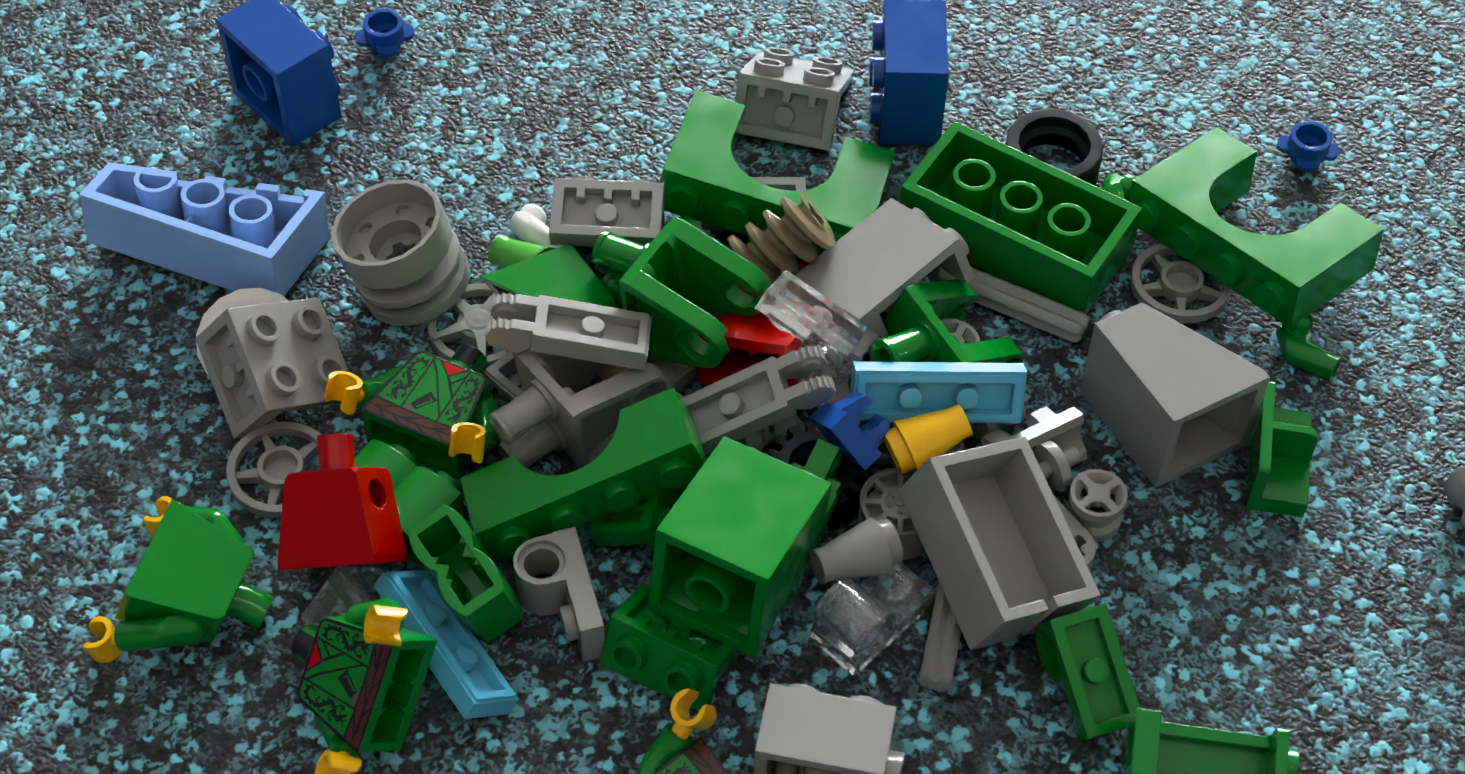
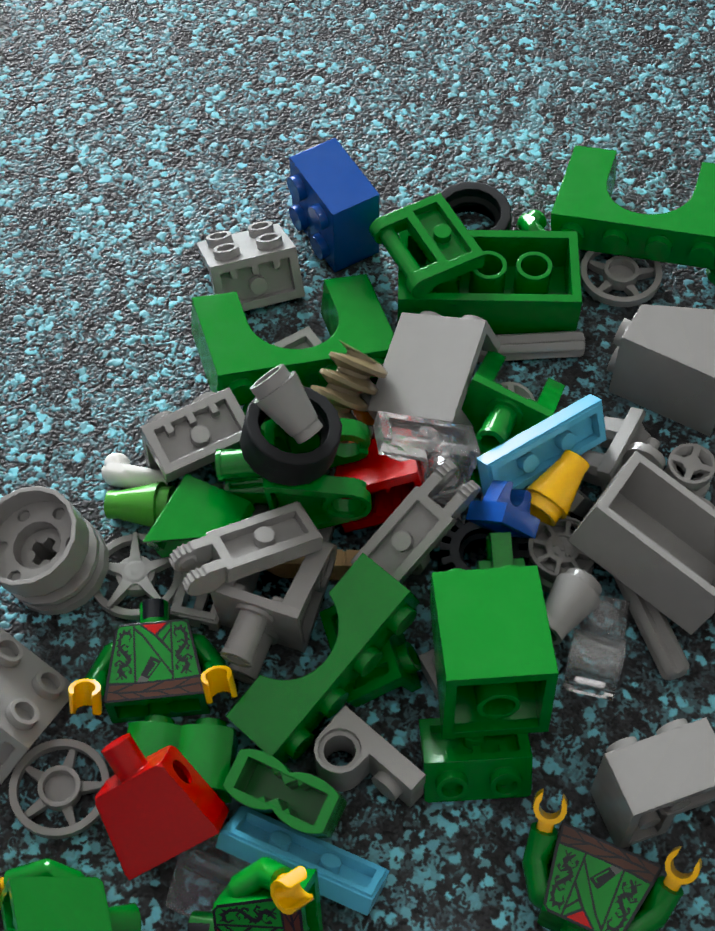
camera: 30 degrees left, 5 degrees up
(678, 205) = (286, 403): none -> light grey cone
(686, 210) = (288, 467): none -> black tyre
(983, 145) = (439, 237): none -> green plate
(1308, 145) = (632, 130): blue plate -> none

